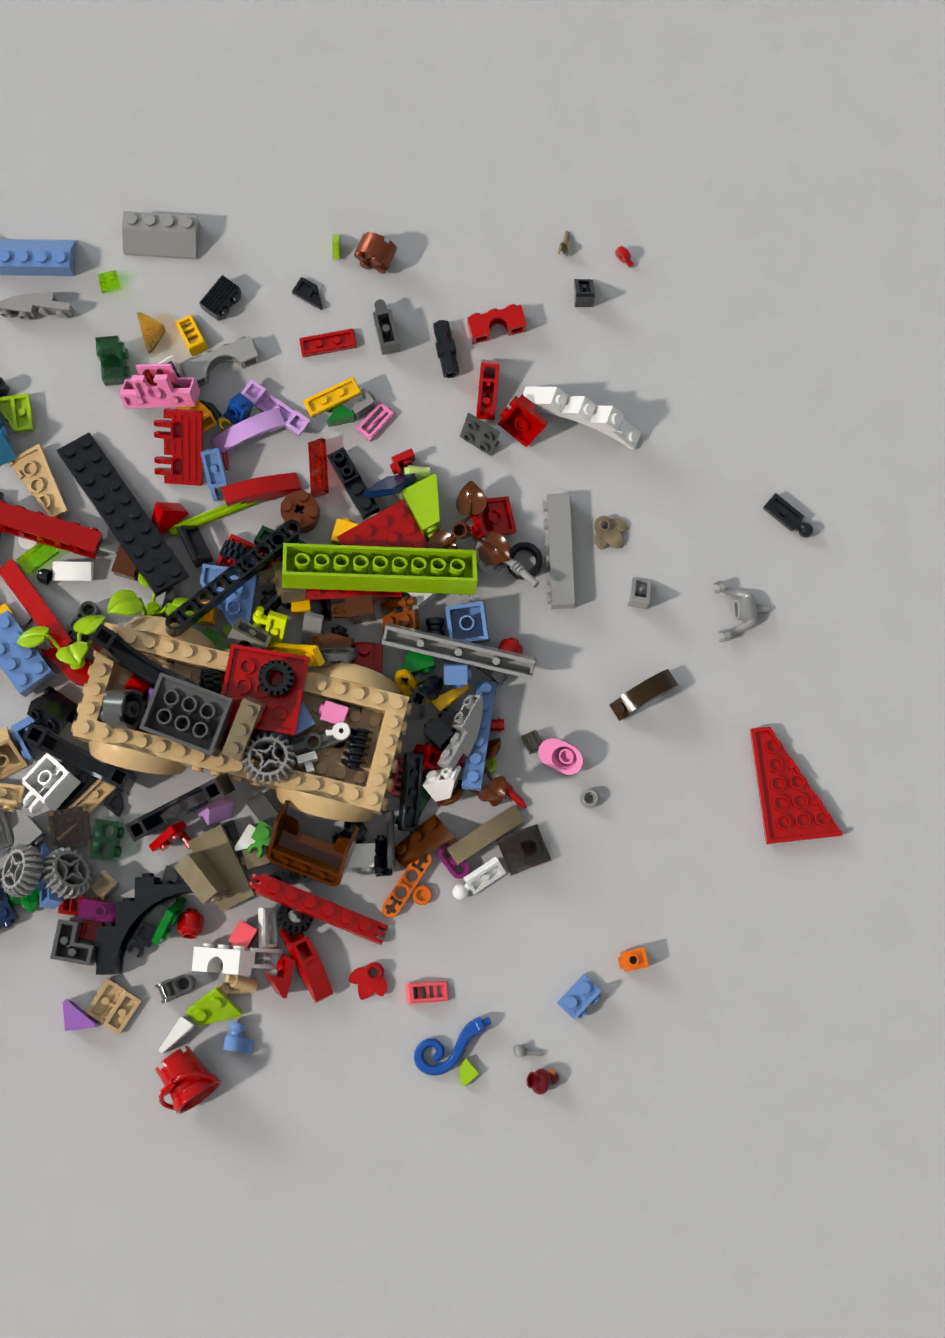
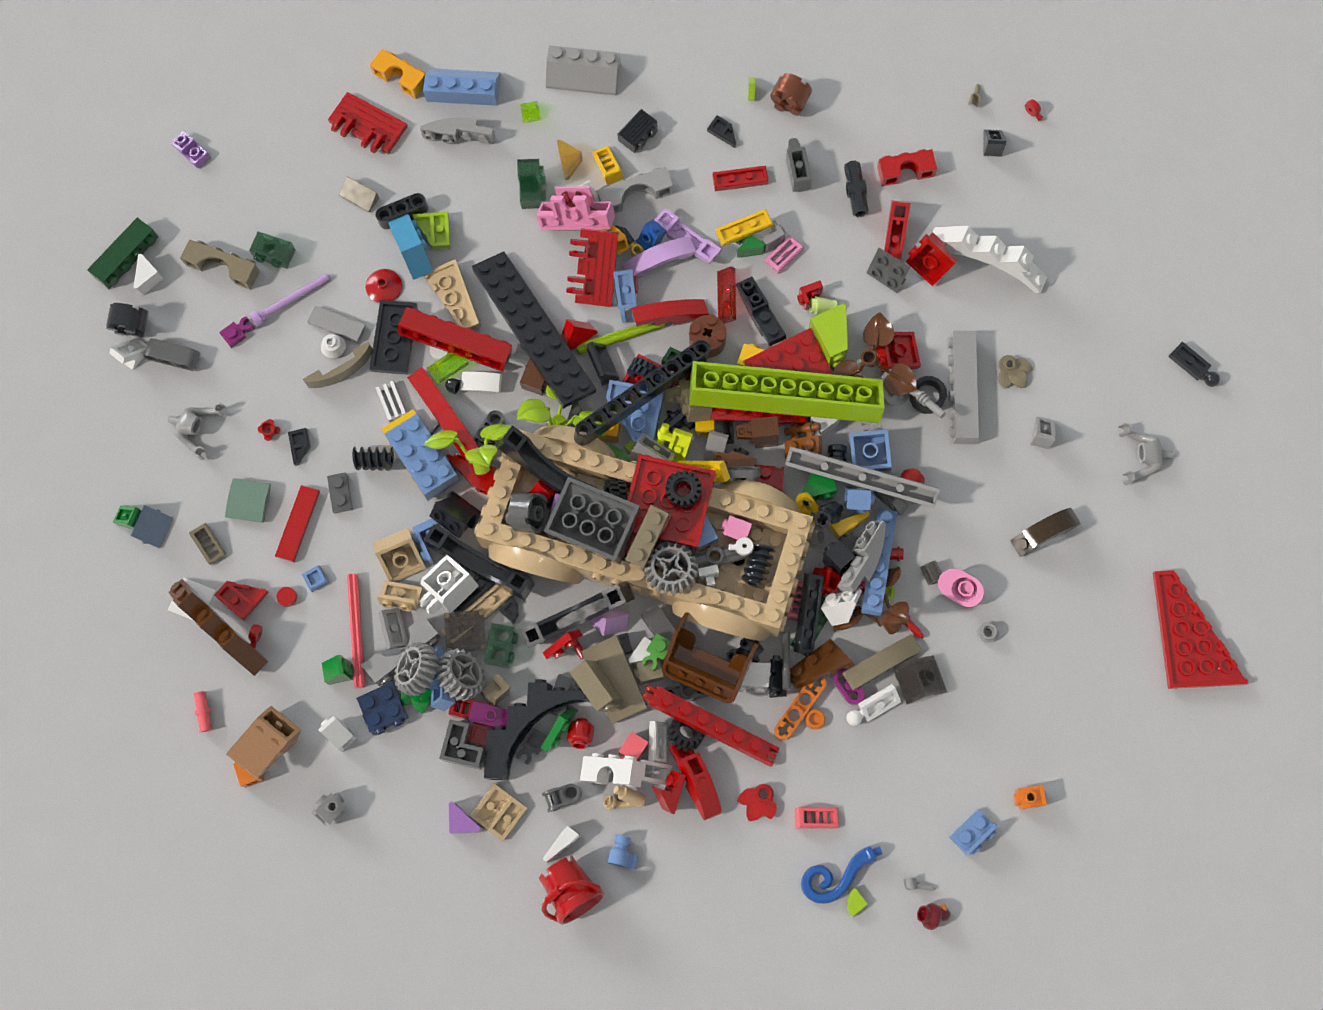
camera: 10 degrees right, 5 degrees down
(213, 1008) = (599, 820): lime wing -> none
(390, 485) = (798, 314): dark blue tile -> none

